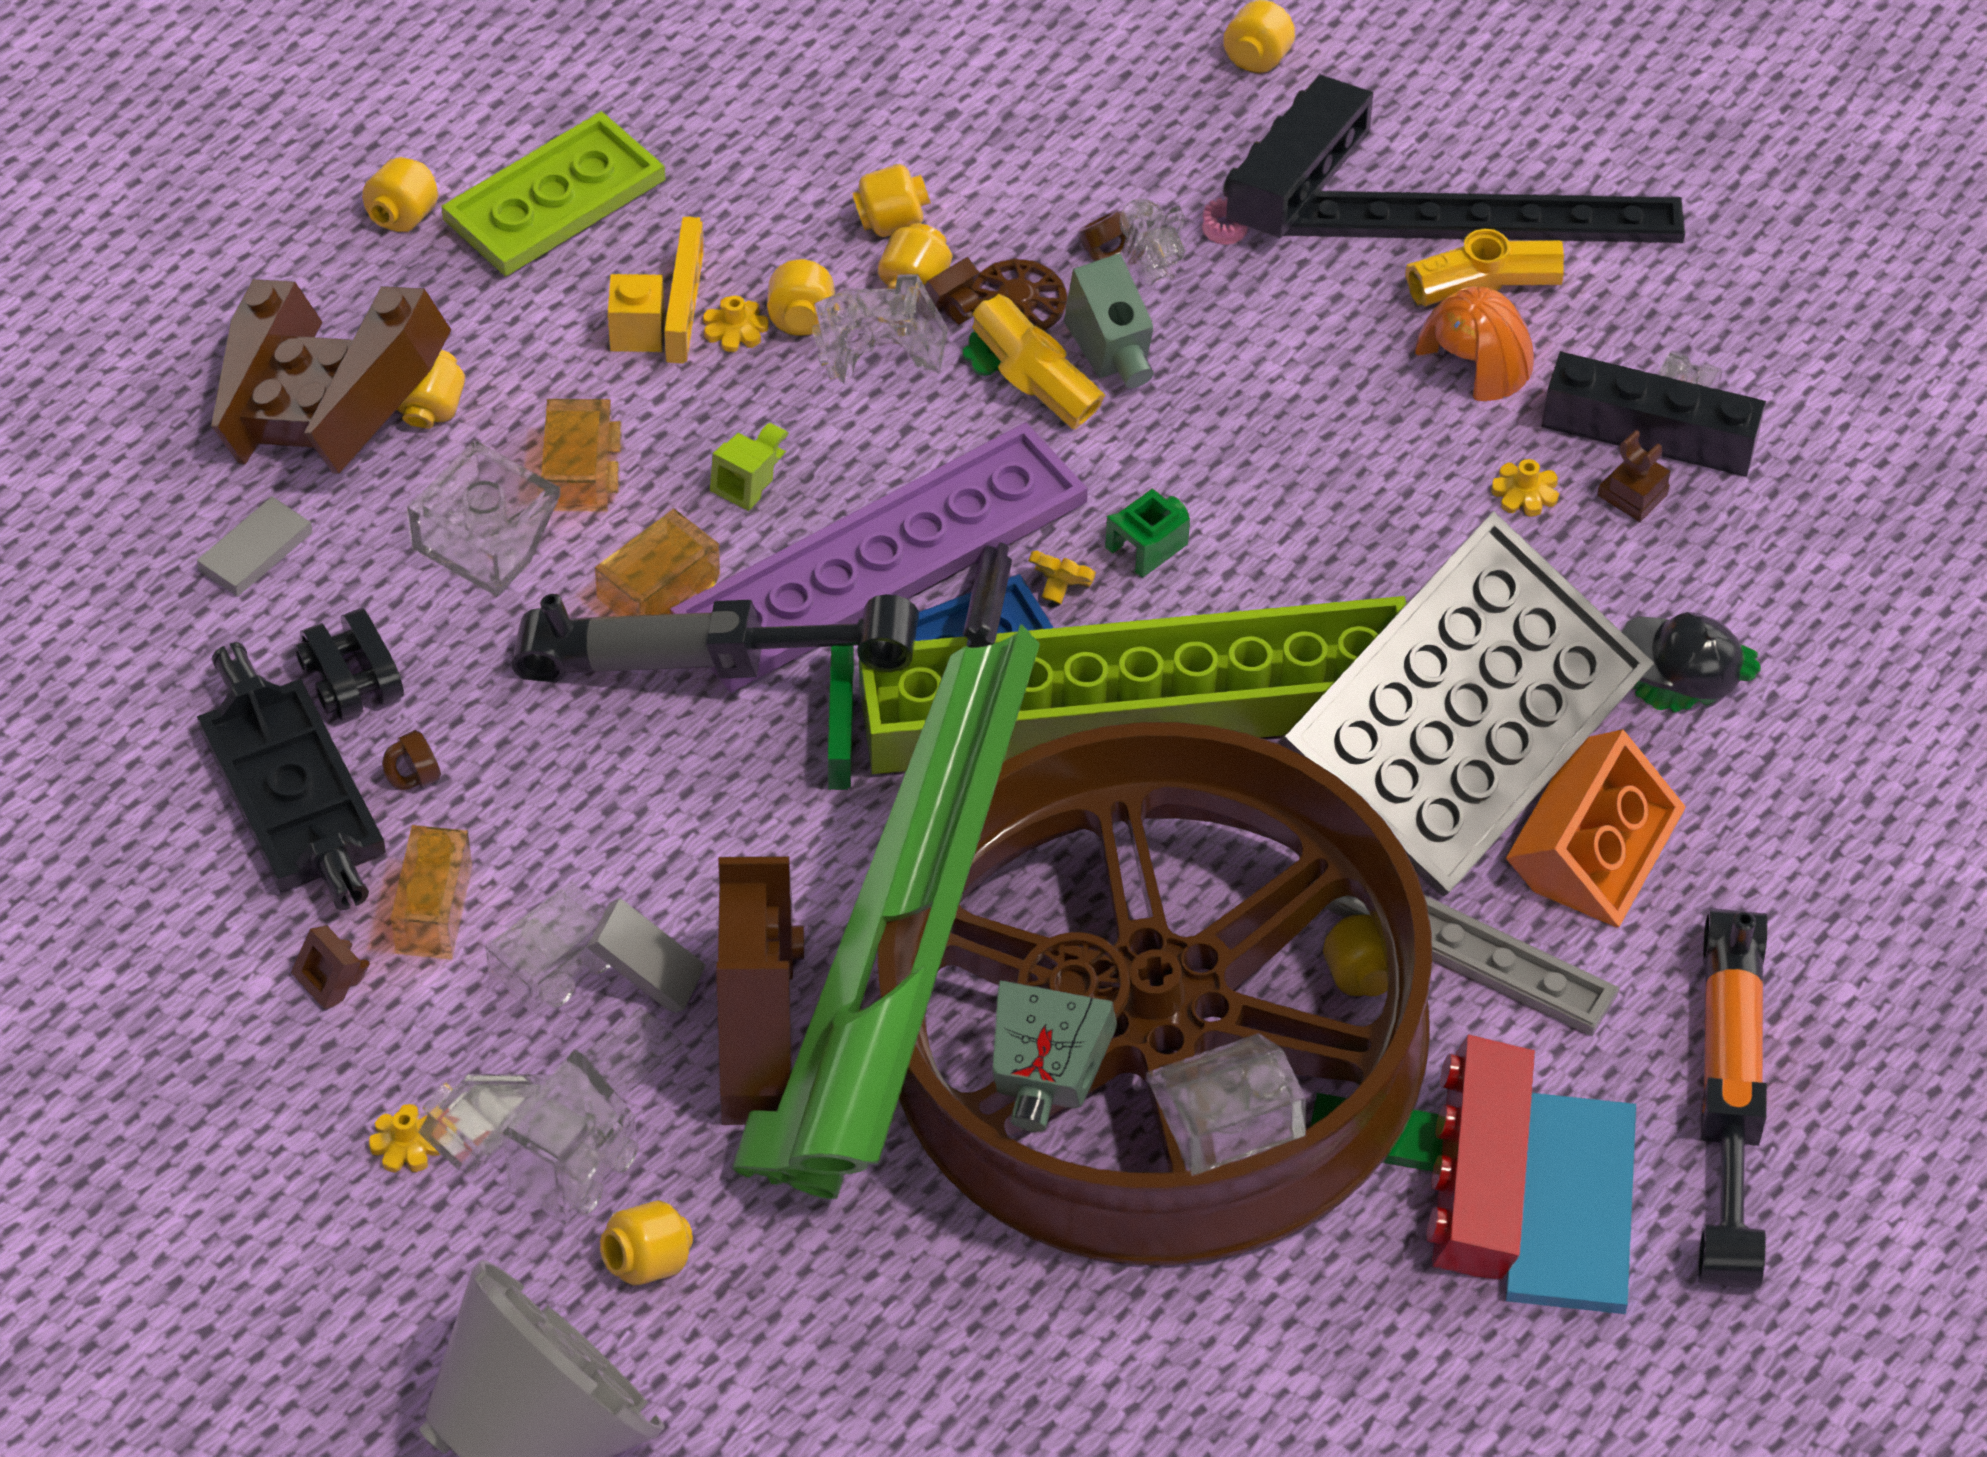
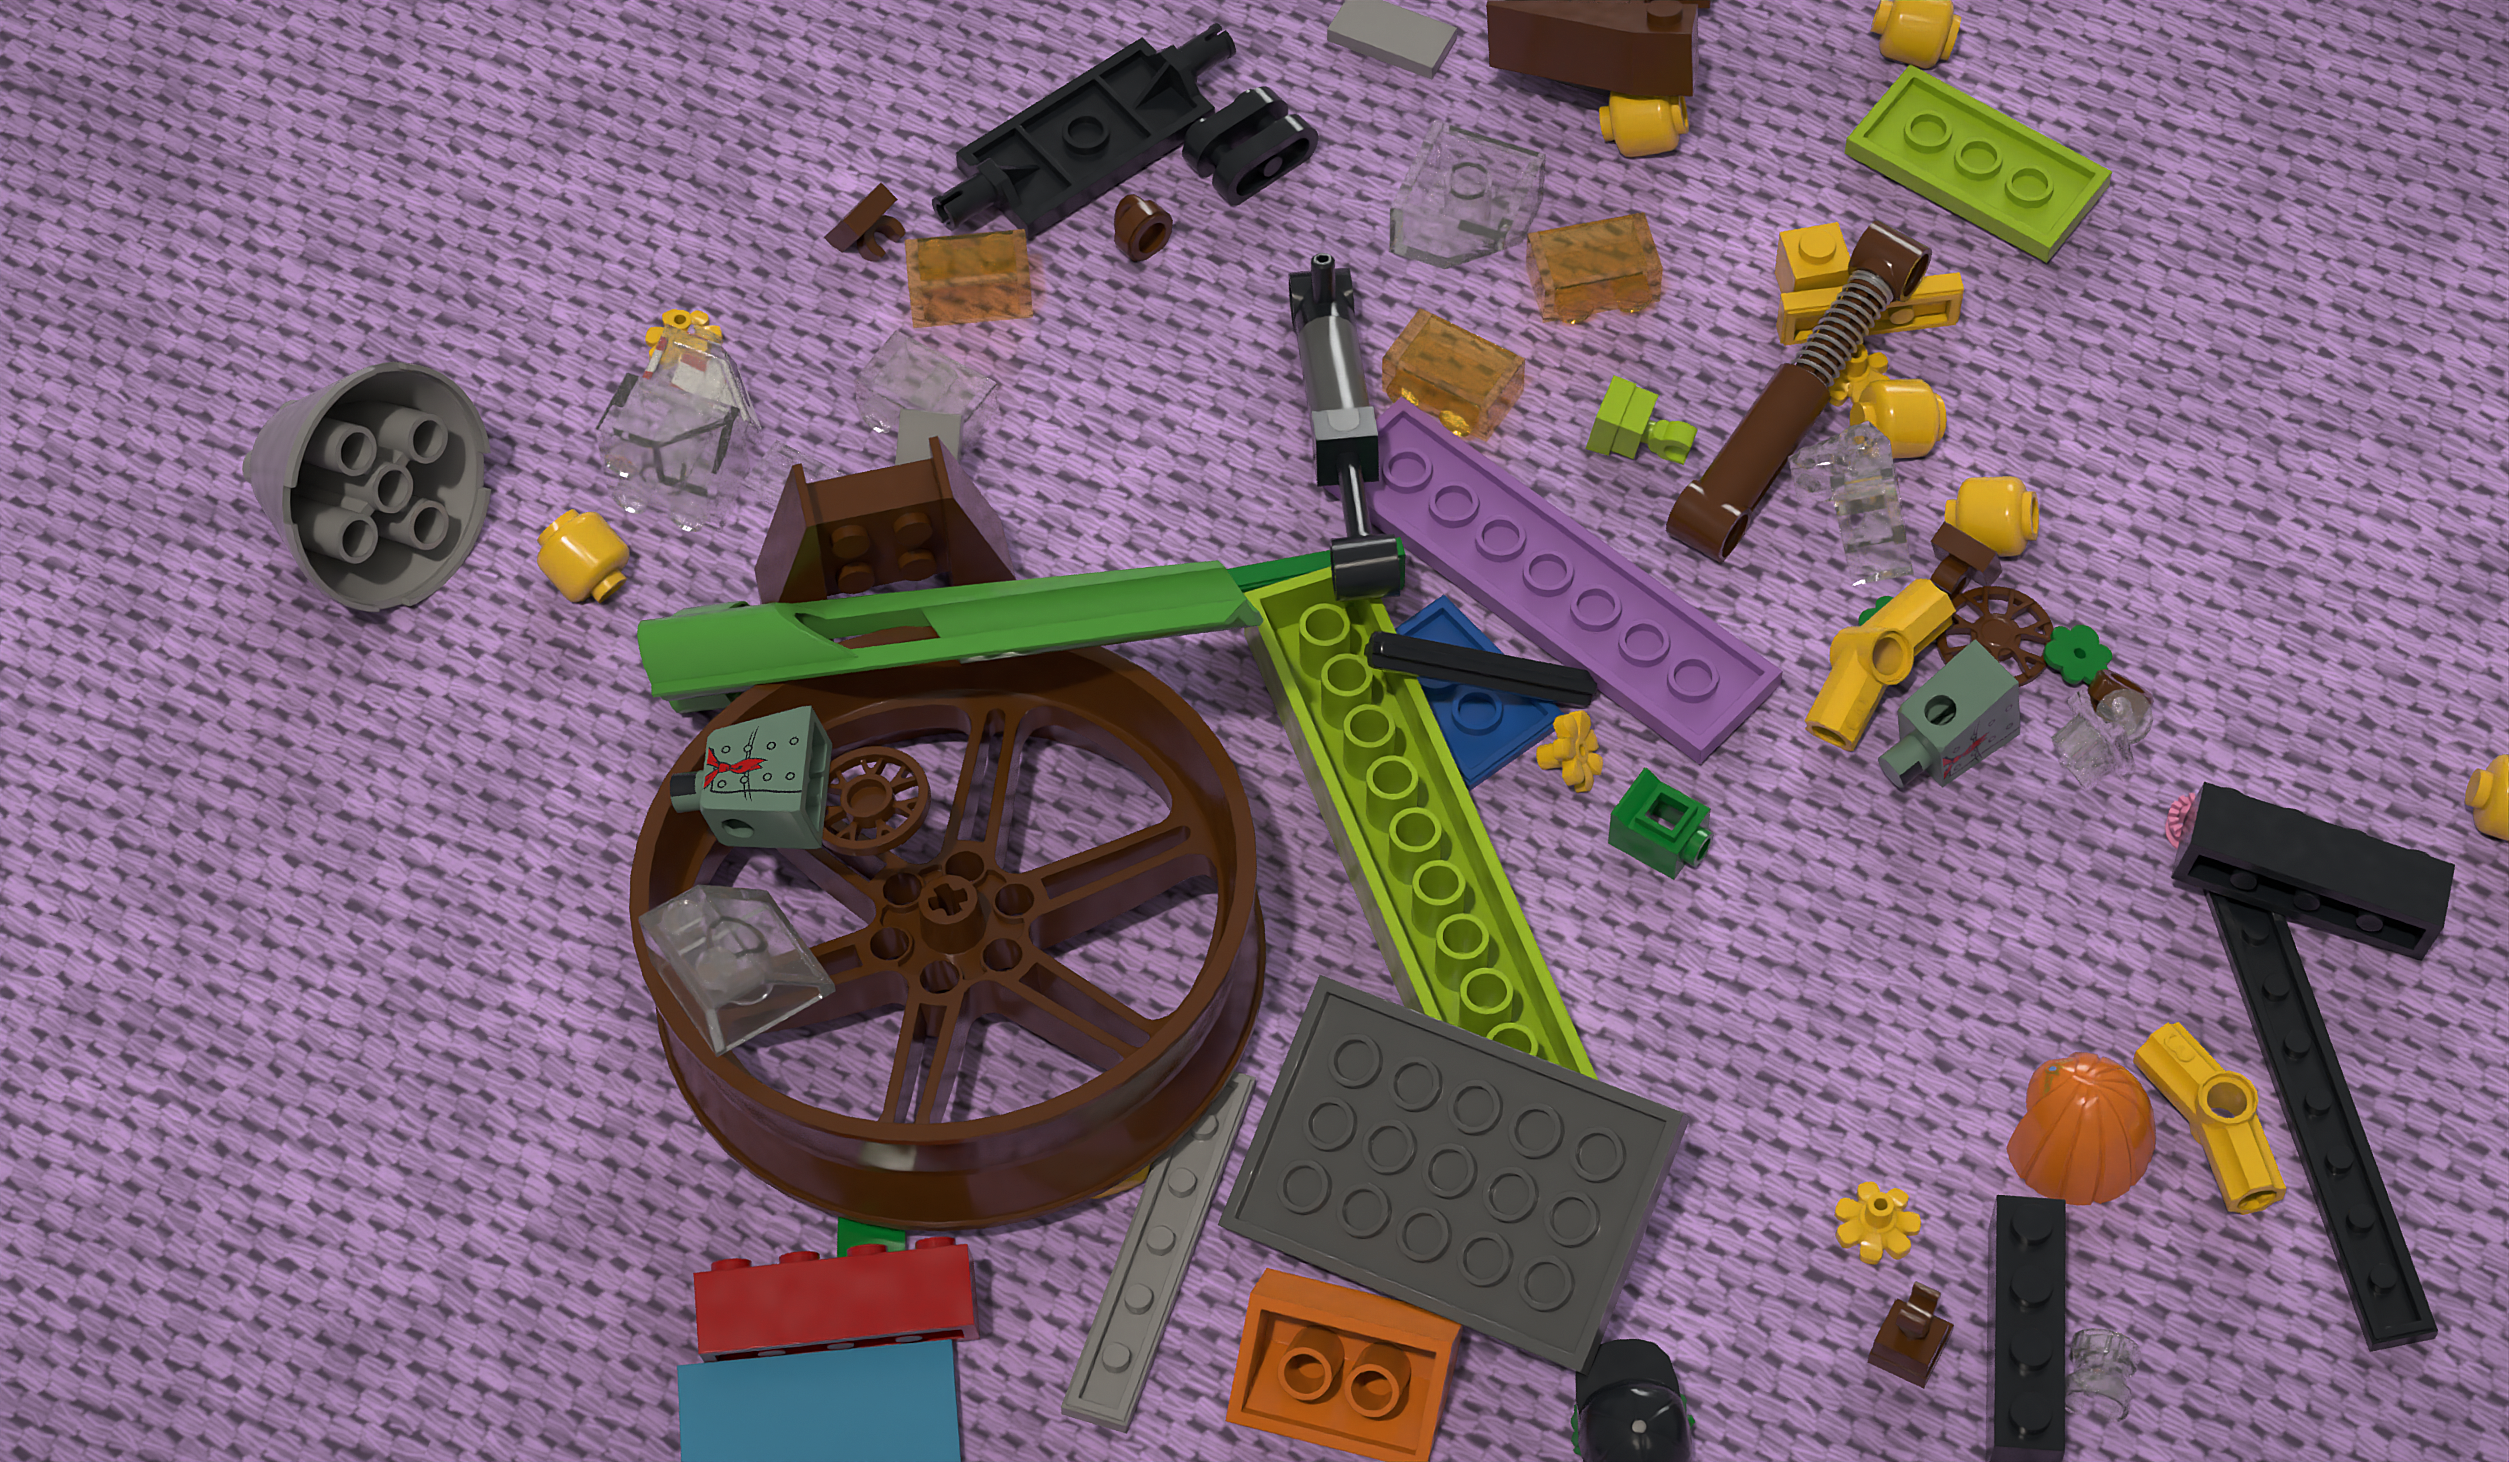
camera: 80 degrees right, 5 degrees up
(852, 430) = (1719, 506): none -> reddish brown piece
(890, 199) = (2080, 471): yellow head -> none
(1053, 249) = (2076, 653): none -> green plant

